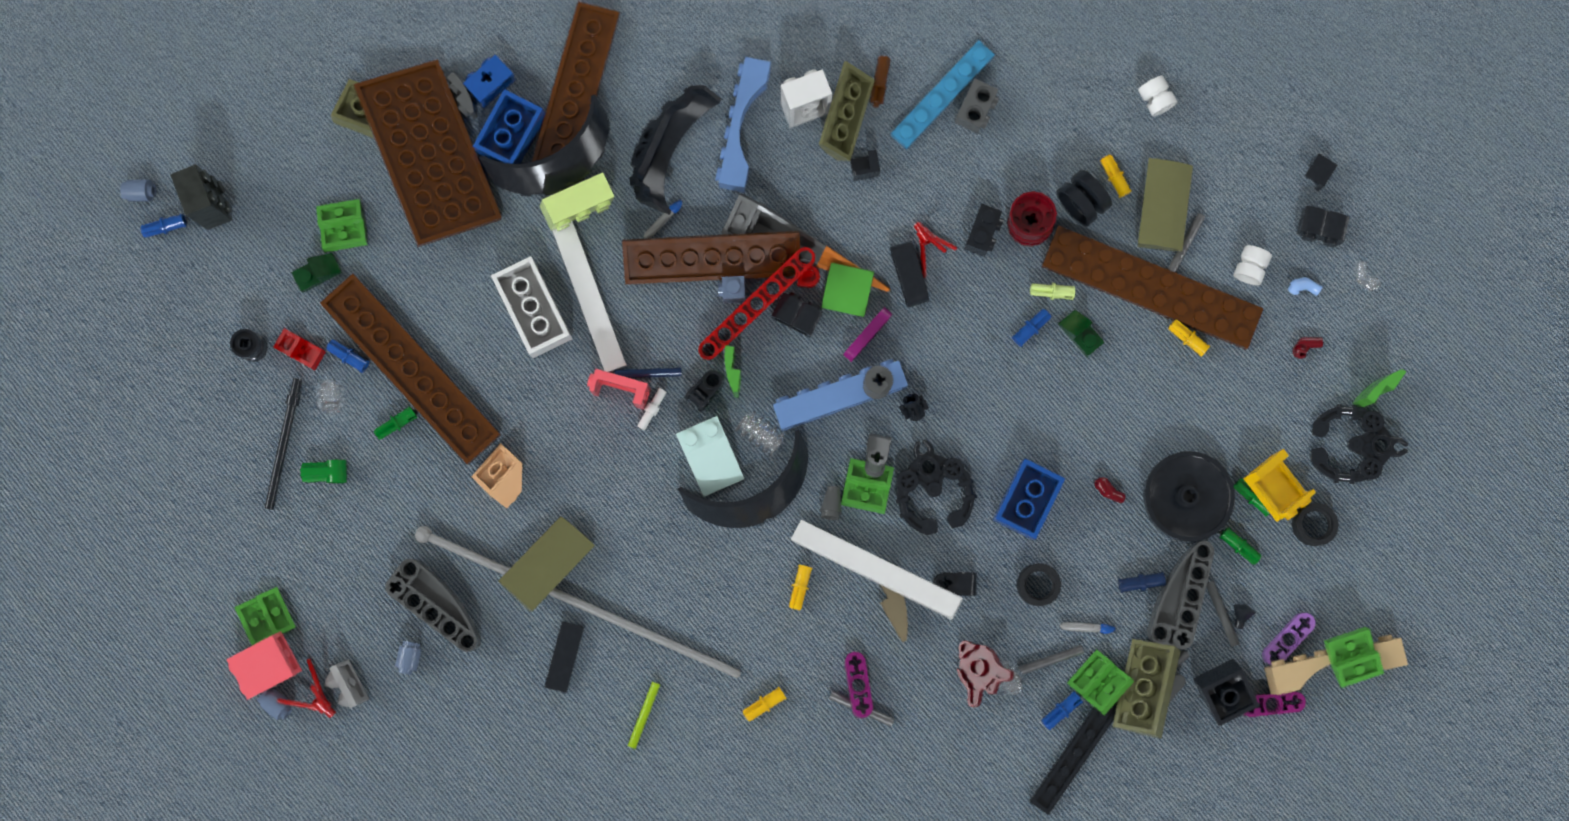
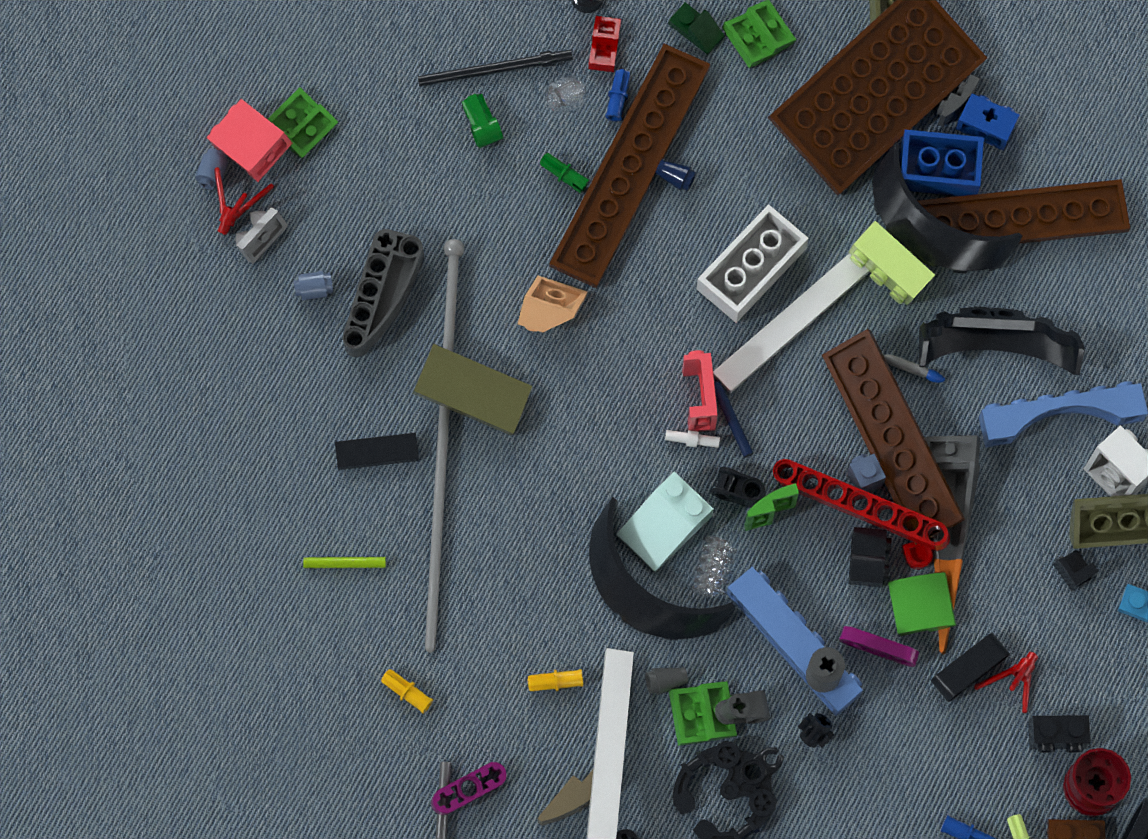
camera: 70 degrees right, 10 degrees down
(433, 336) = (676, 174): none -> dark blue cone

